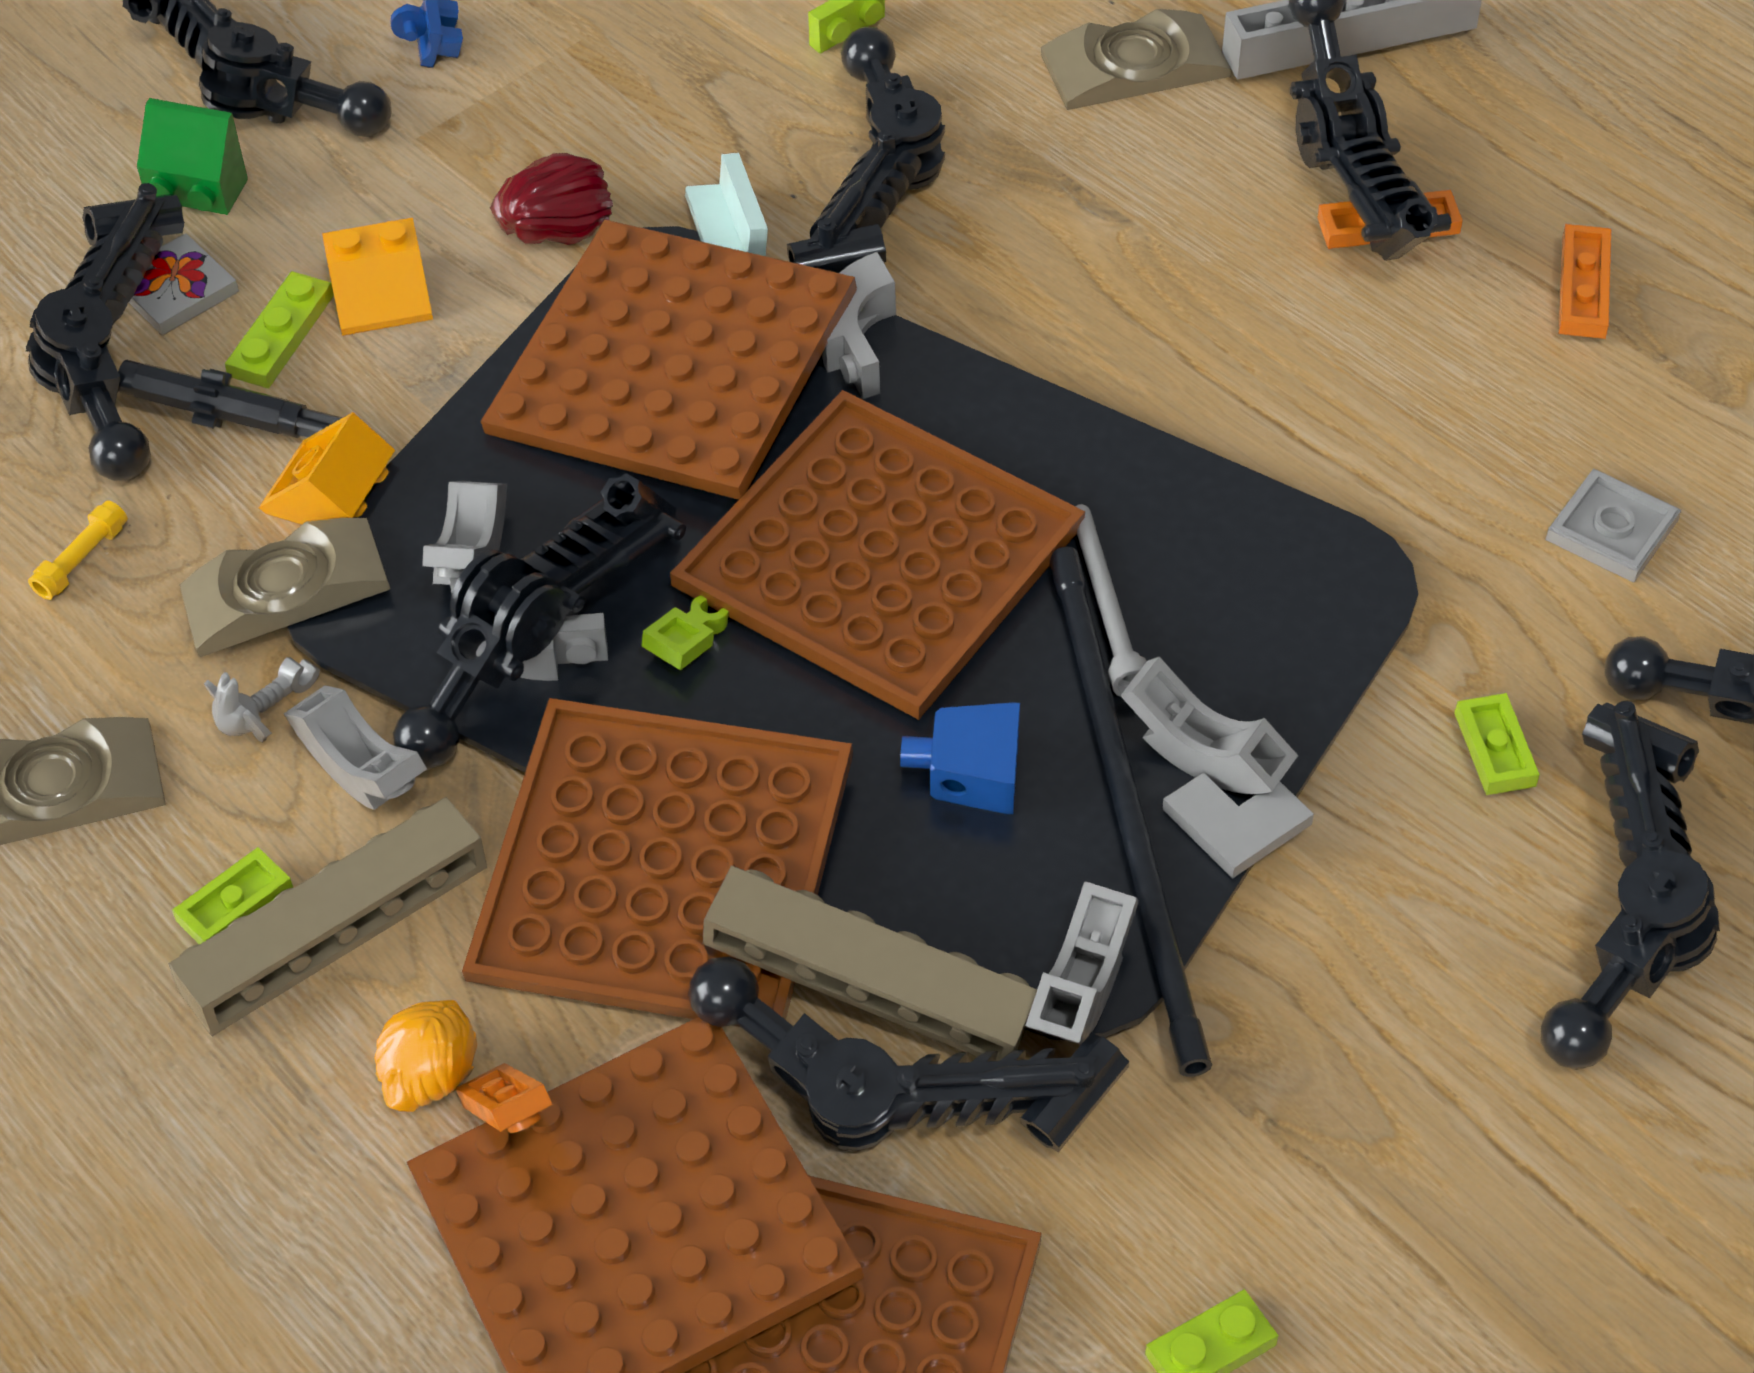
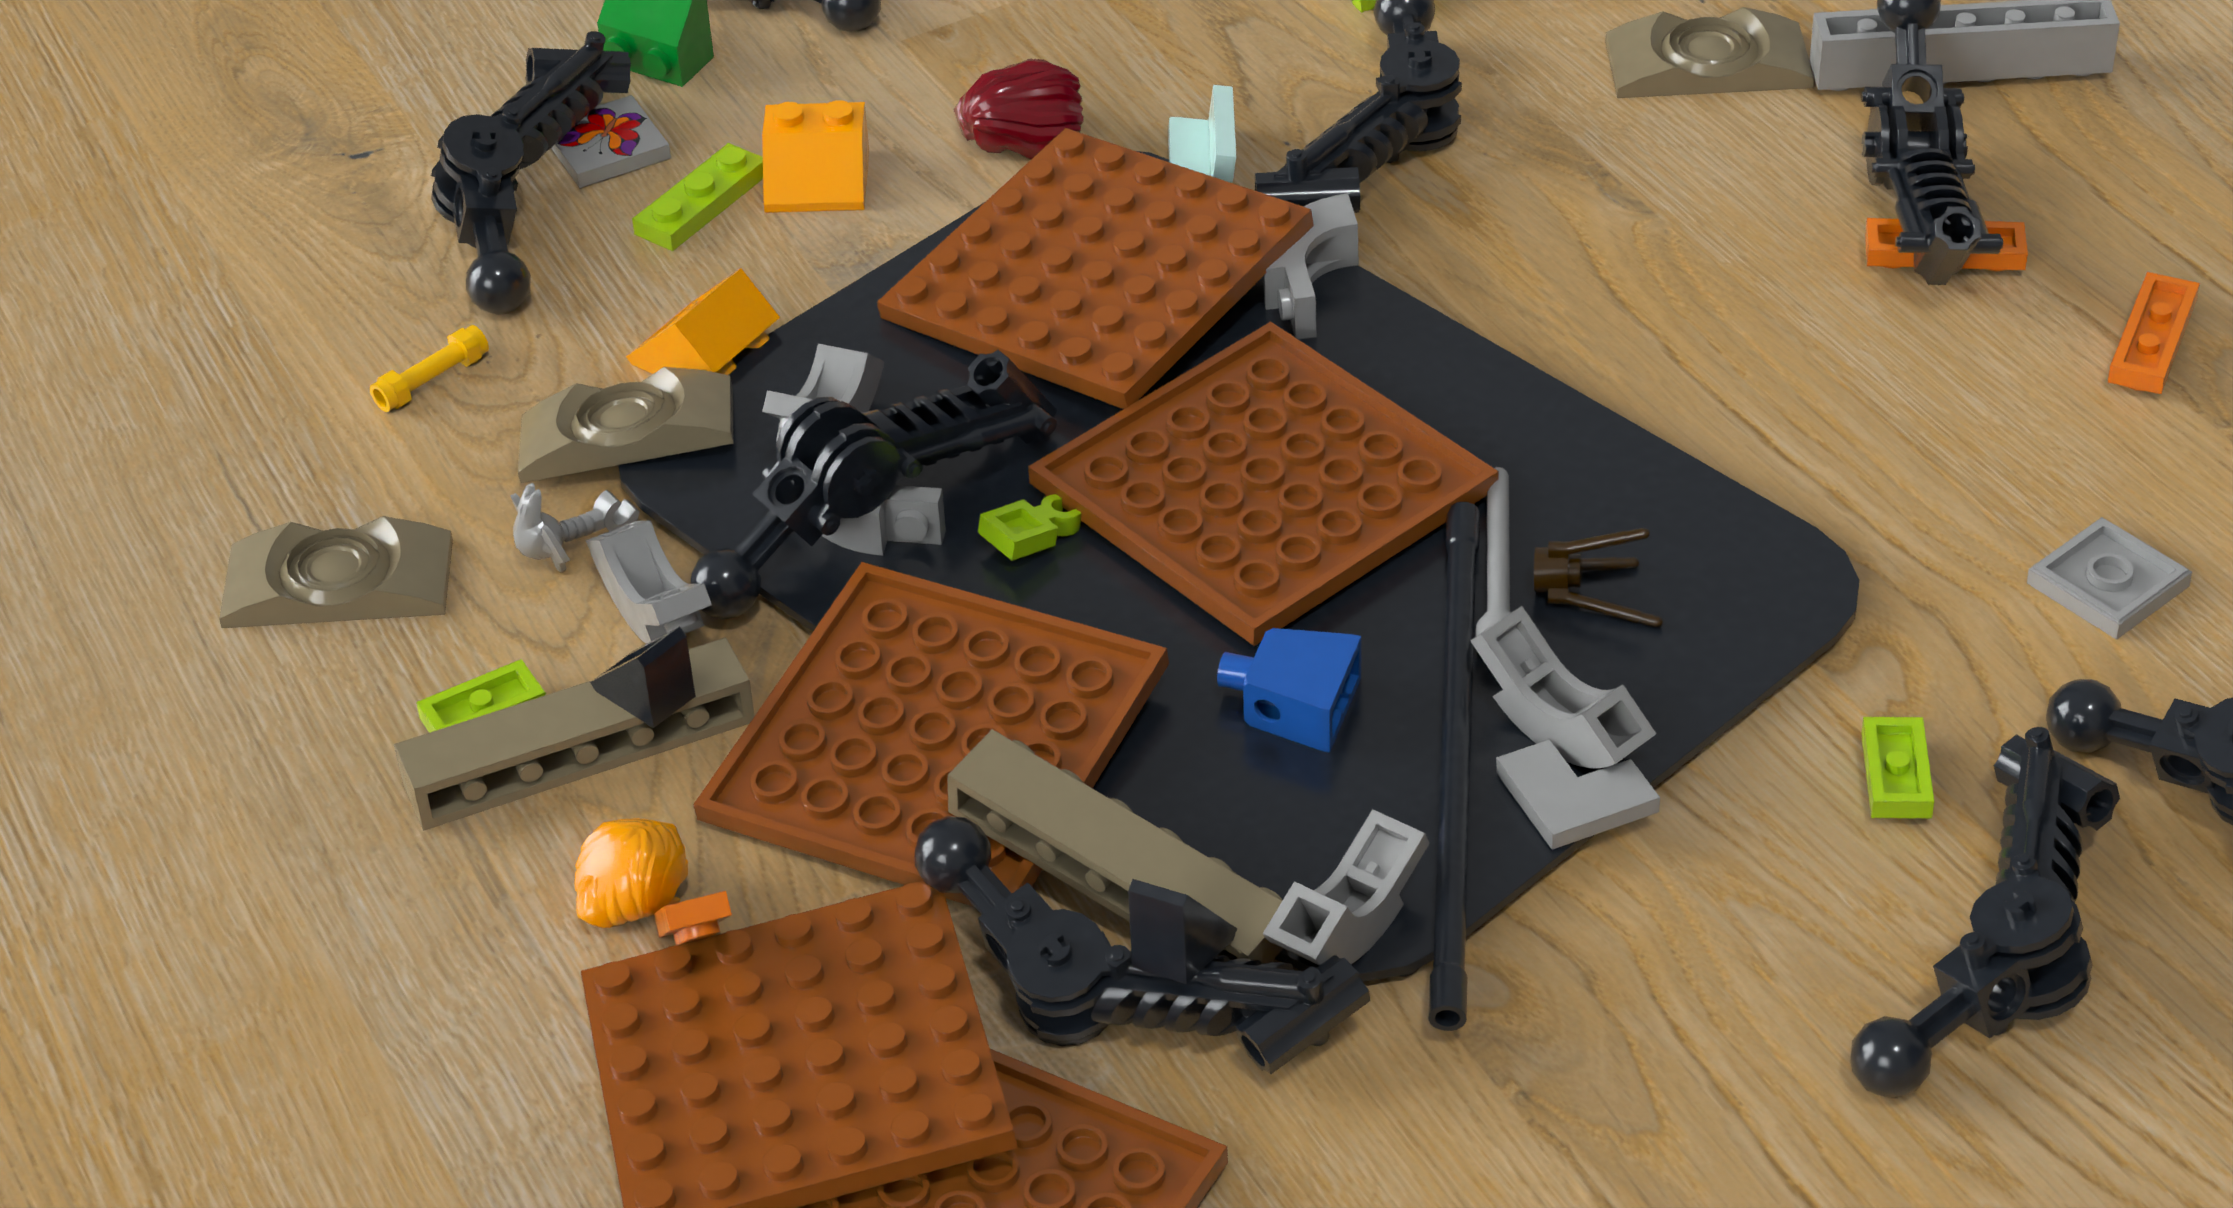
camera: 15 degrees right, 10 degrees down
(216, 400) = (610, 248): black piece -> none
(392, 857) = (651, 679): none -> black slope
(955, 1050) = (1173, 932): none -> black slope
(1165, 599) = (1562, 566): none -> dark brown plant

